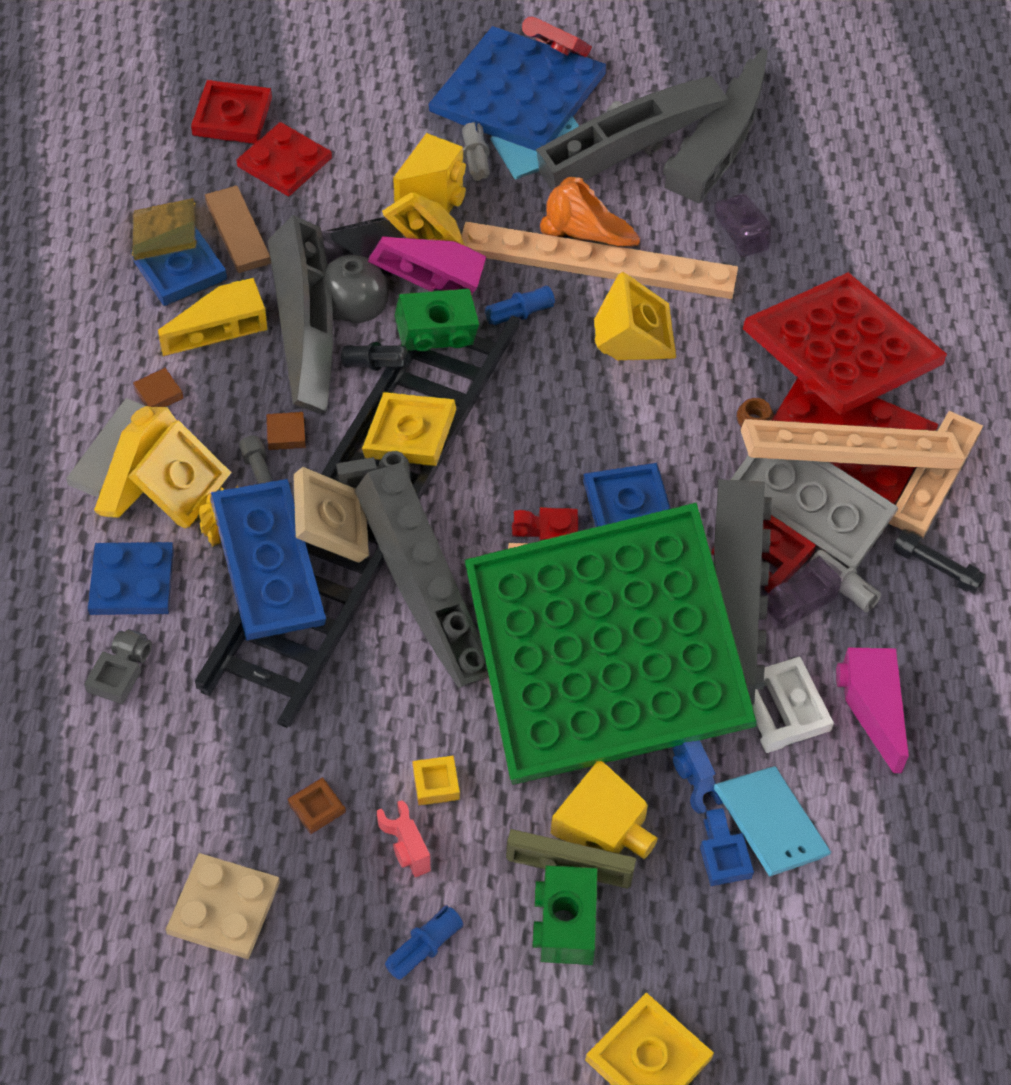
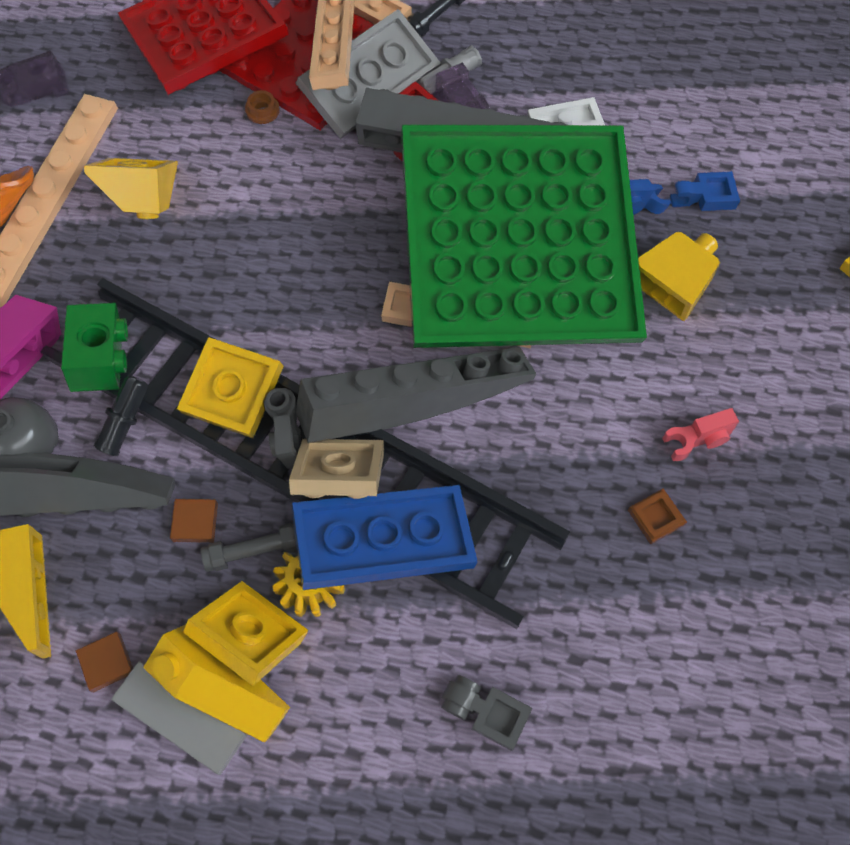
camera: 80 degrees left, 10 degrees up
(131, 578) = (367, 698): blue plate -> none
(223, 906) = (767, 611): tan plate -> none
(424, 942) = (803, 430): blue axle -> none
(436, 780) = (637, 405): yellow plate -> none
(520, 305) = (81, 275): blue axle -> none
(541, 851) = (721, 302): olive tile -> none
(549, 524) = (358, 281): red plate -> none
(571, 891) = (794, 303): green brick -> none
(625, 493) = (343, 216): blue plate -> none
(772, 820) = (679, 155): medium azure container -> none
(875, 698) = (571, 66): dark pink slope -> none

